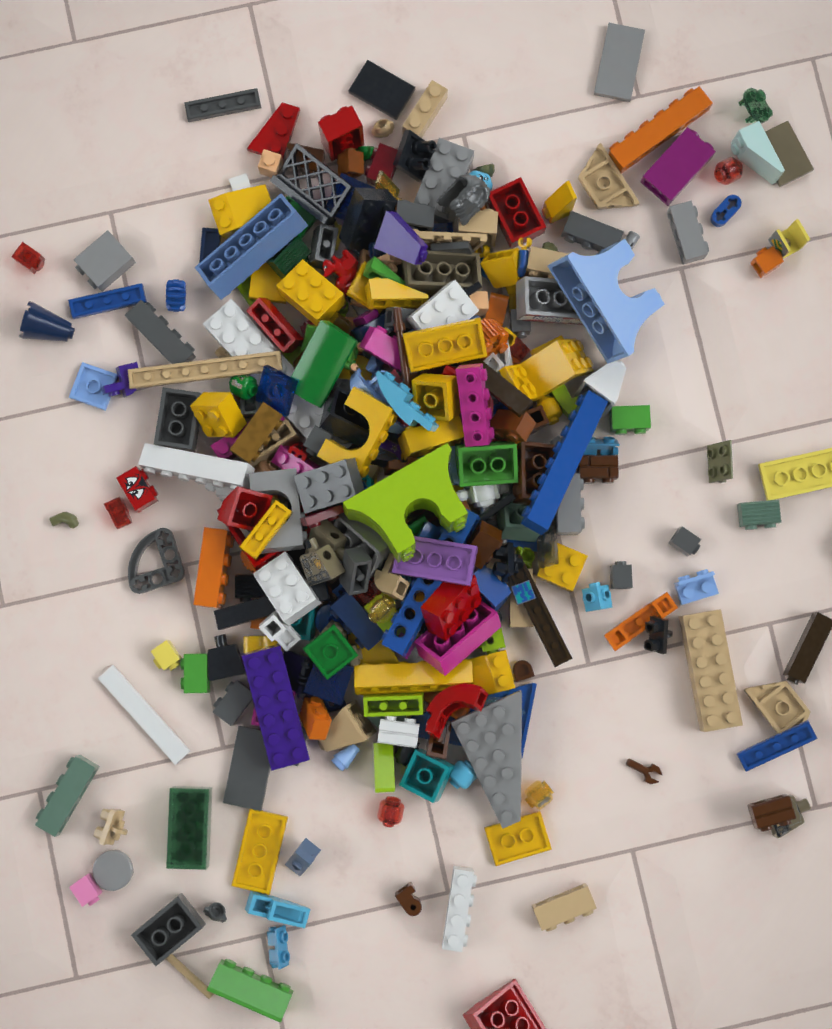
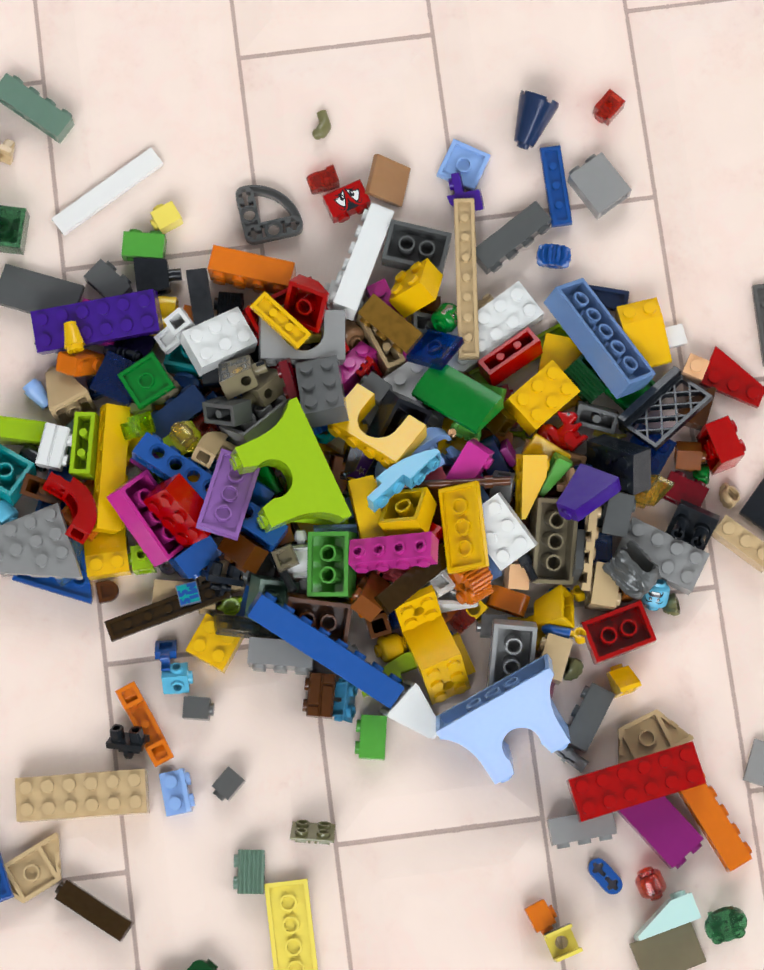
camera: 95 degrees right, 5 degrees down
(114, 452) = (387, 180): none -> medium nougat tile
(296, 725) = (72, 338): none -> yellow cone
(374, 654) = (138, 425): none -> clear neon green brick
(485, 505) = (285, 557): none -> dark tan tile
(573, 610) = (165, 651): none -> blue plate
(648, 184) = (636, 781): none -> red brick

